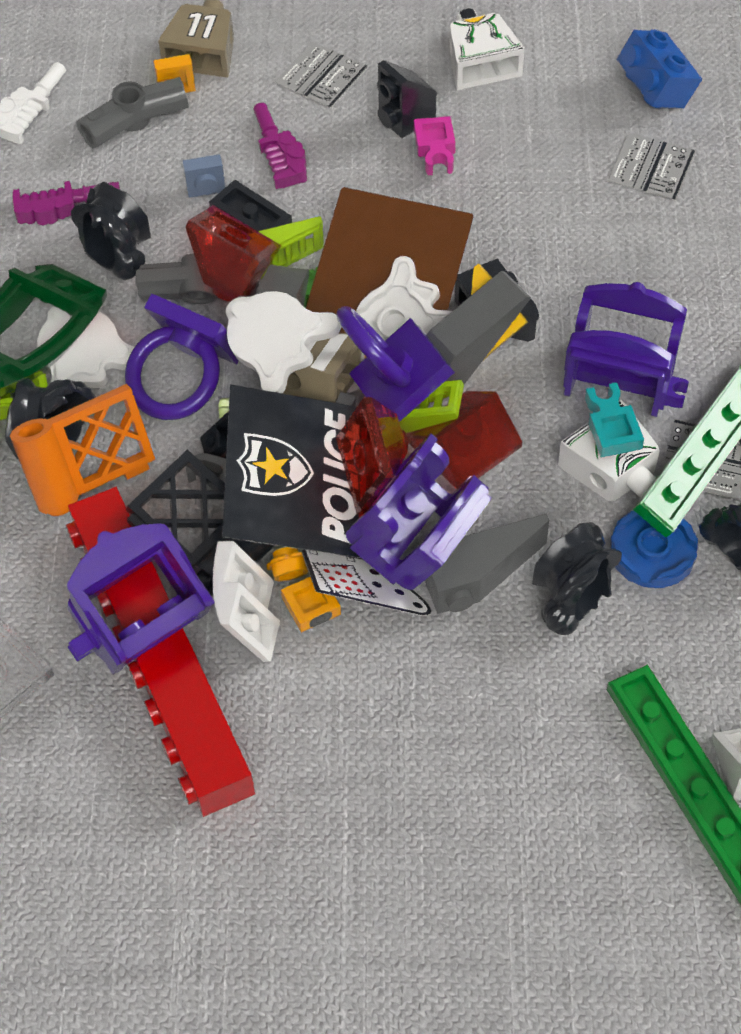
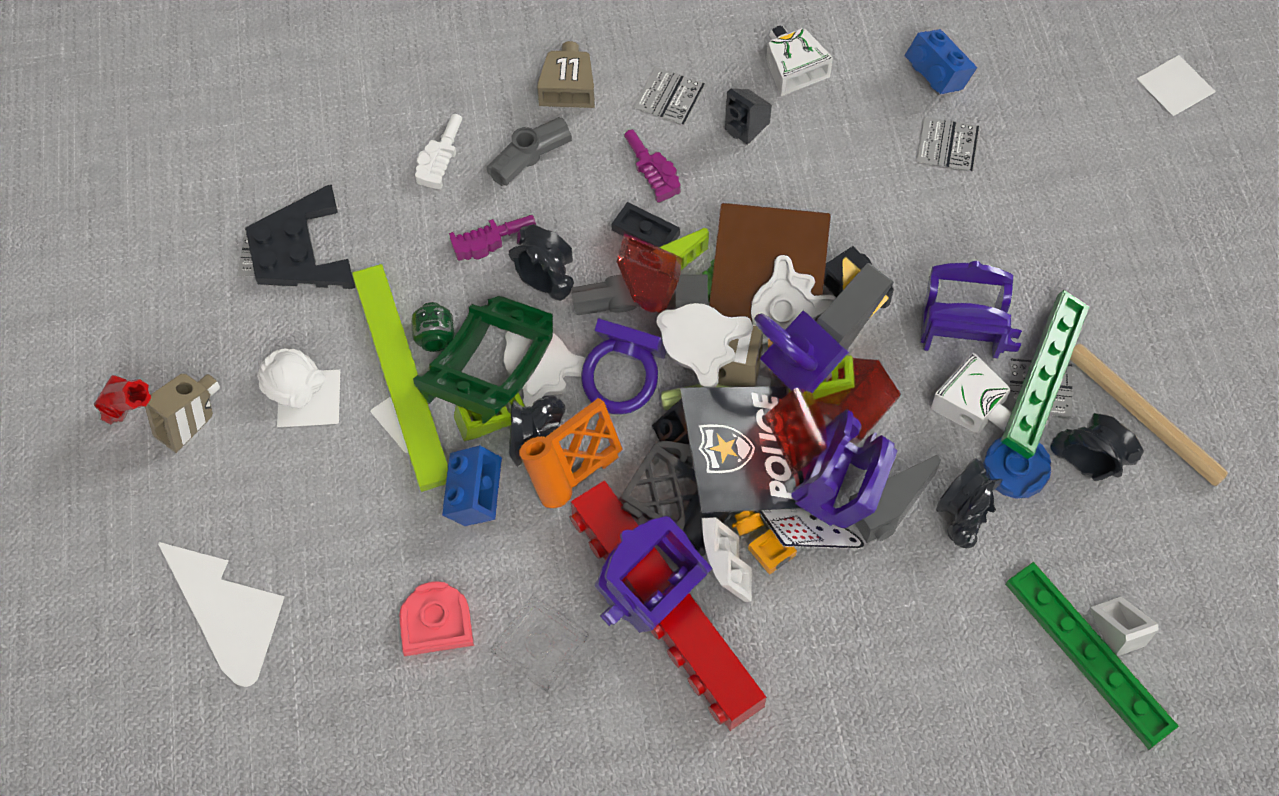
camera: 10 degrees left, 5 degrees up
(176, 67) = (553, 109): light orange plate -> none
(204, 175) = (601, 201): sand blue plate -> none
(435, 142) = (777, 145): dark pink plate -> none
(613, 426) = (974, 377): teal plate -> none

